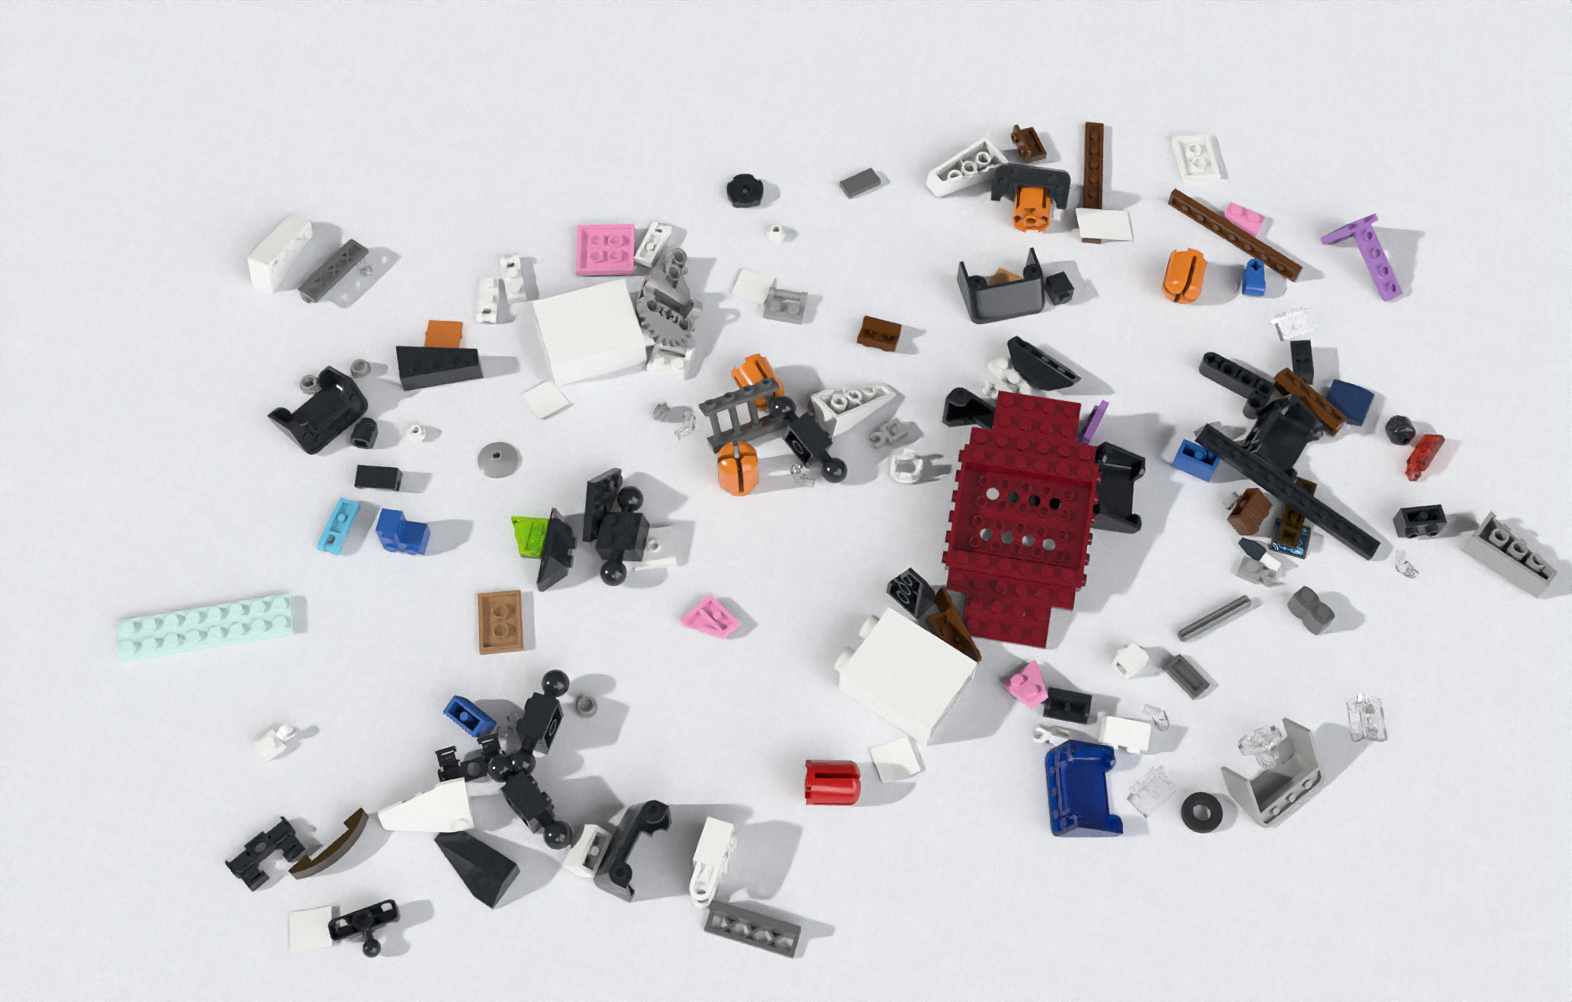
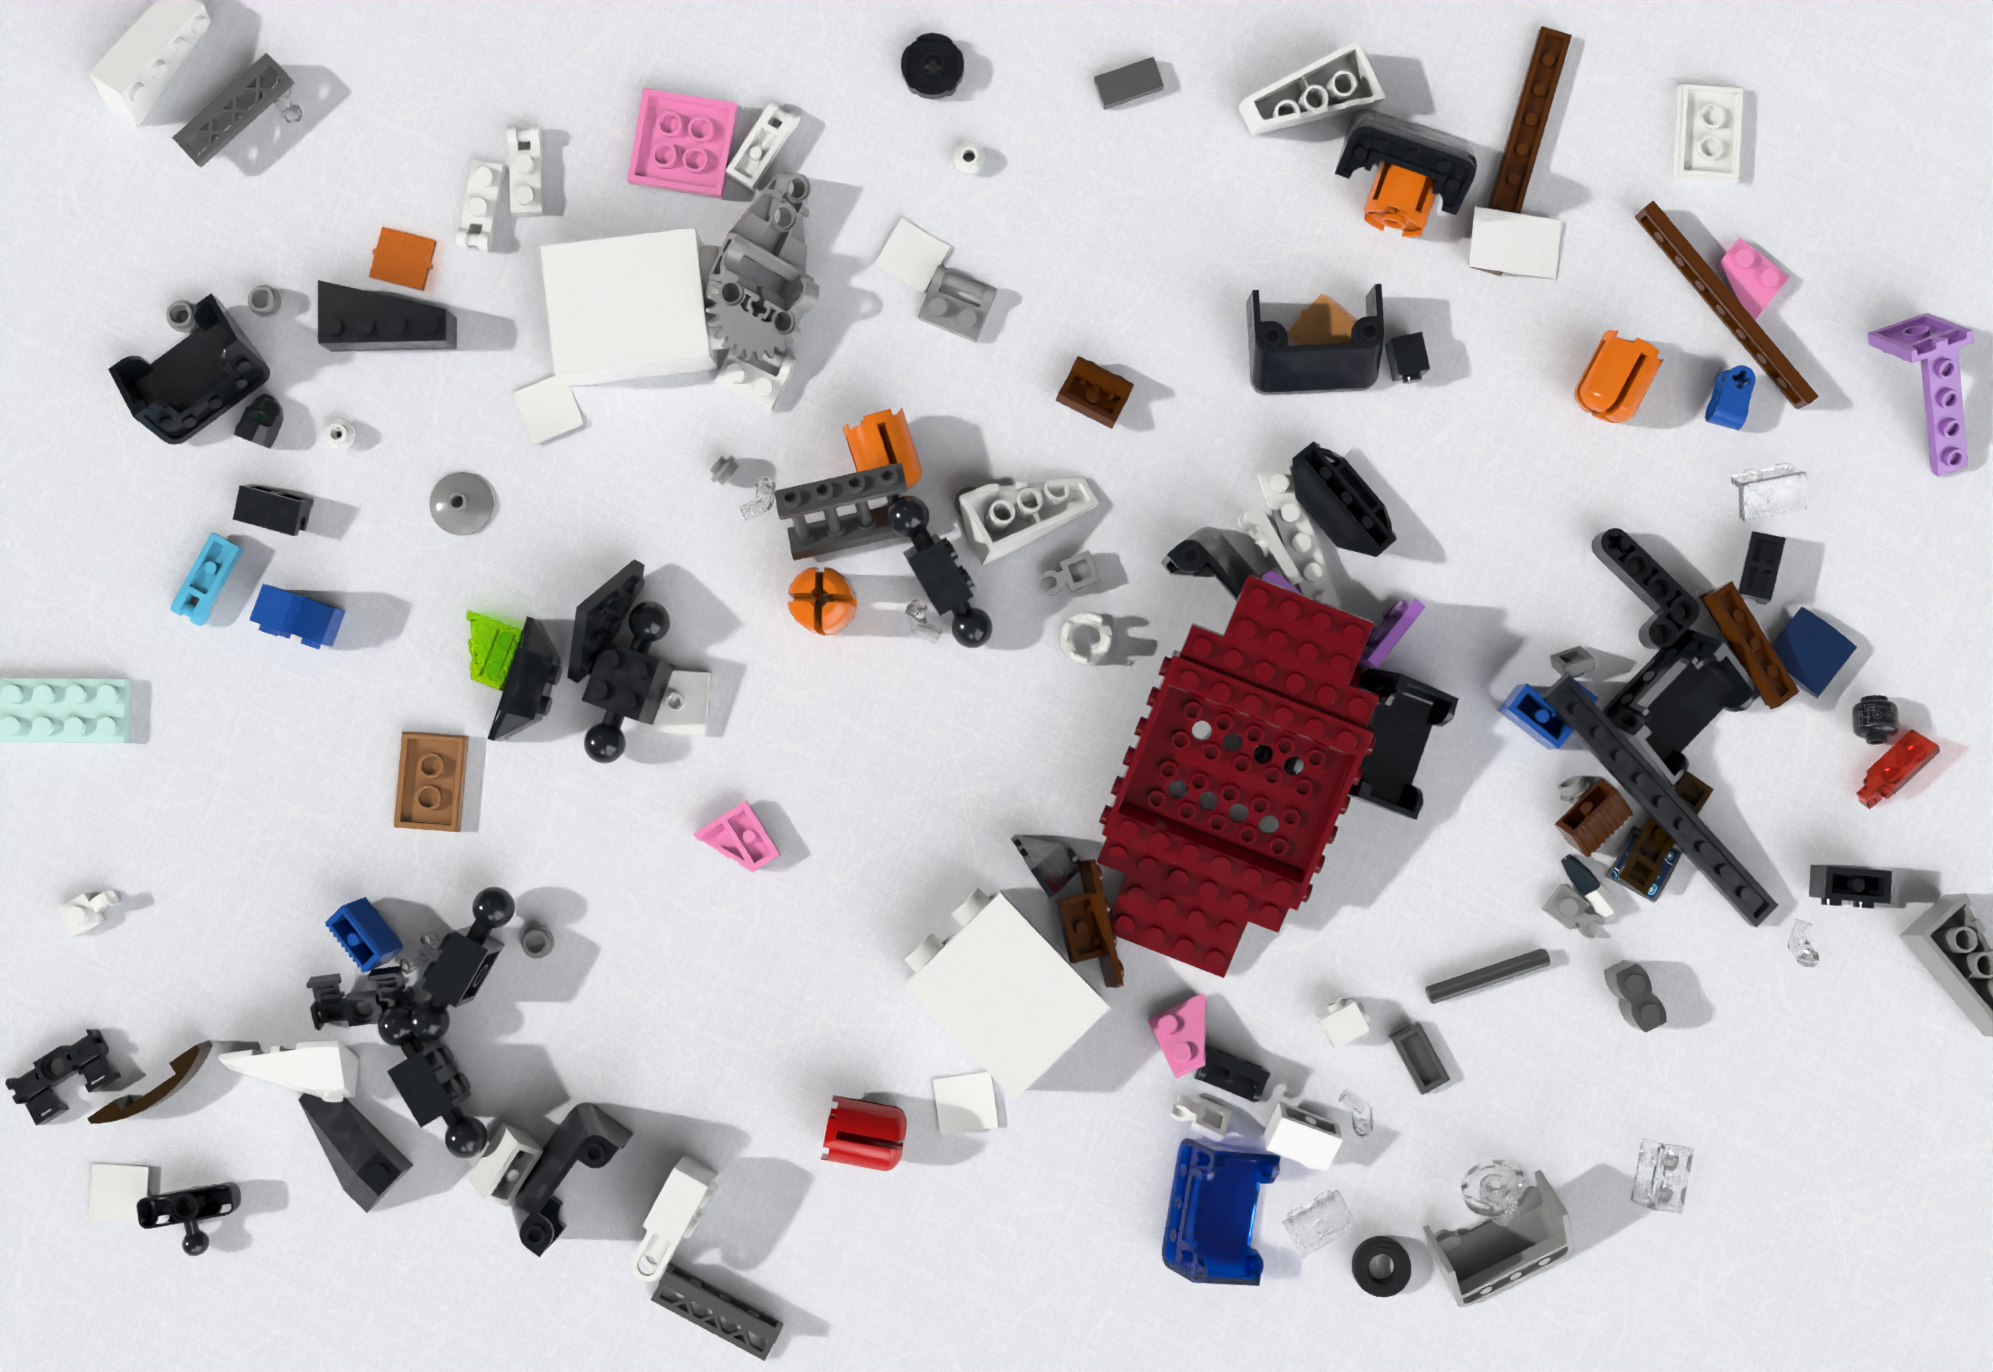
camera: 15 degrees right, 25 degrees up
(1028, 144) = (1431, 57): reddish brown bracket -> none

